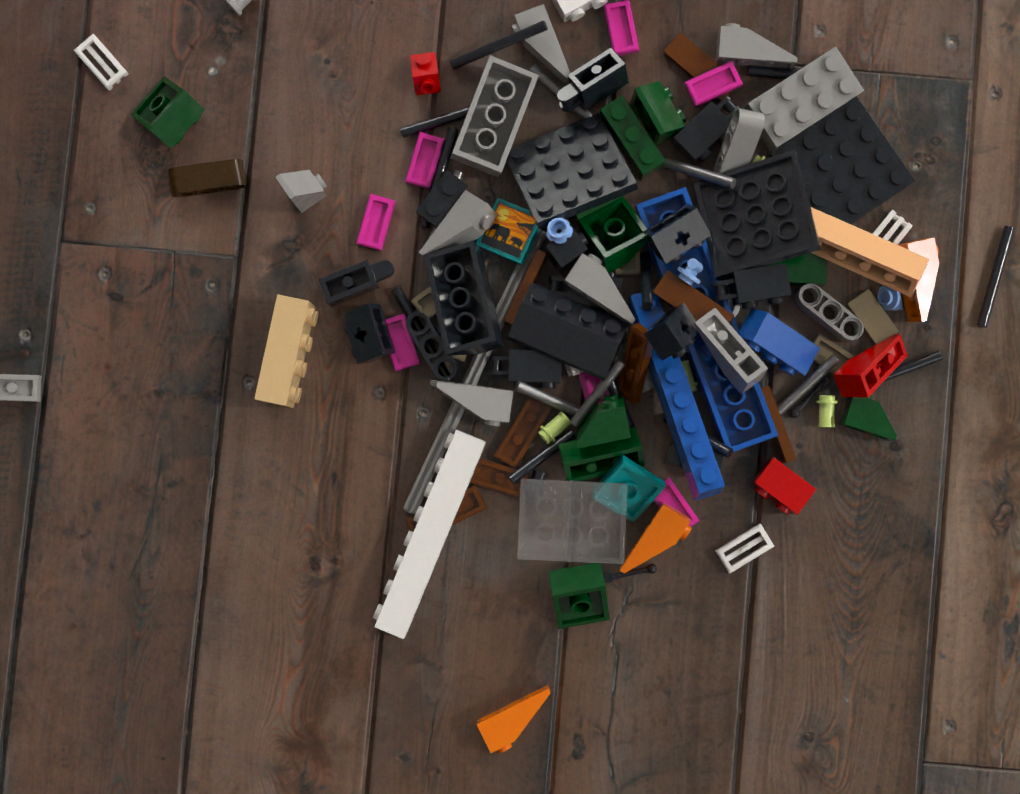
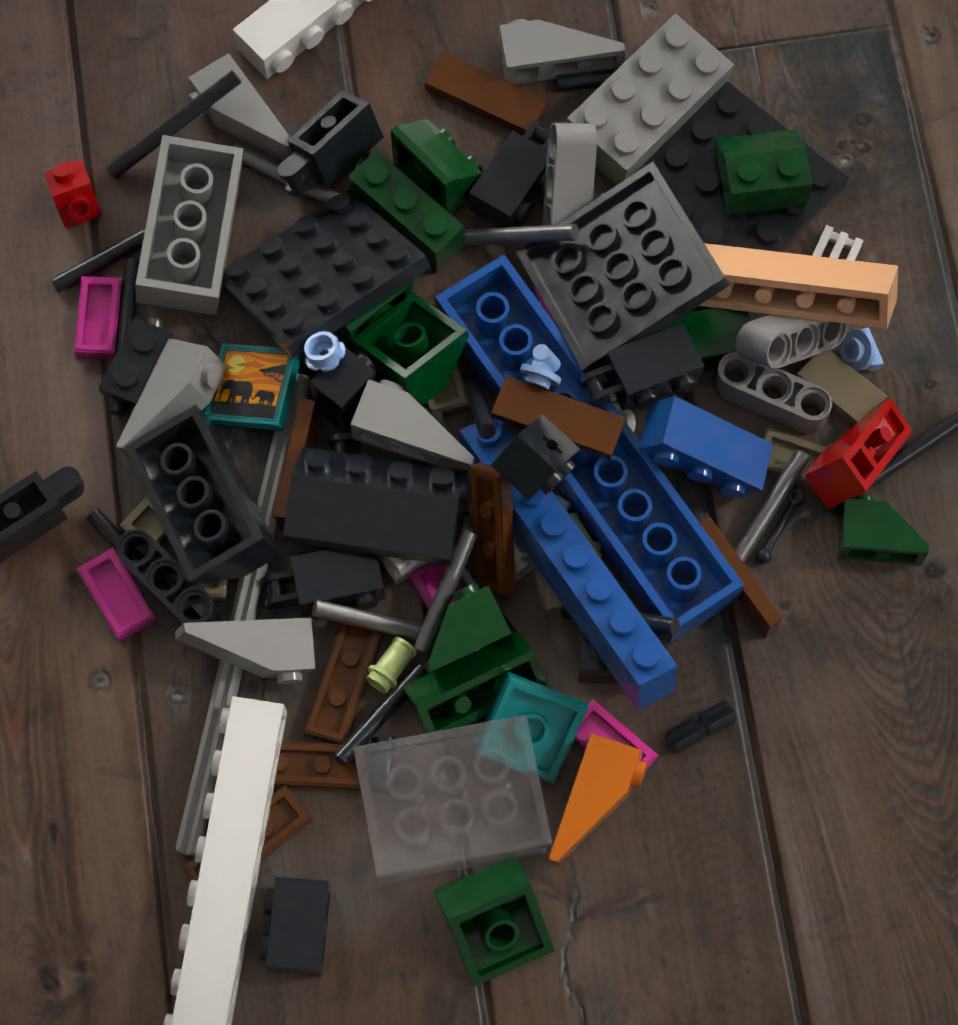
camera: 15 degrees left, 15 degrees down
(370, 321) = (61, 587): black brick -> none
(375, 222) = (41, 424): dark pink tile -> none
(464, 571) = (297, 926): none -> black brick
(621, 27) = (354, 65): dark pink tile -> none
(651, 568) = (601, 851): black hinge -> none
(663, 234) = (485, 325): black brick -> none
(713, 84) = (509, 110): dark pink tile -> none
(725, 559) = (716, 808): white tile -> none
(730, 351) = (635, 470): light grey slope -> none
(734, 507) = (693, 730): none -> black piece
(783, 486) = (775, 669): red brick -> none
(826, 410) = (811, 539): yellowish green pin -> none
(844, 285) = (785, 340): none -> light grey beam
(863, 166) = (763, 171): none -> dark green slope
(919, 303) = (903, 338): slope -> none

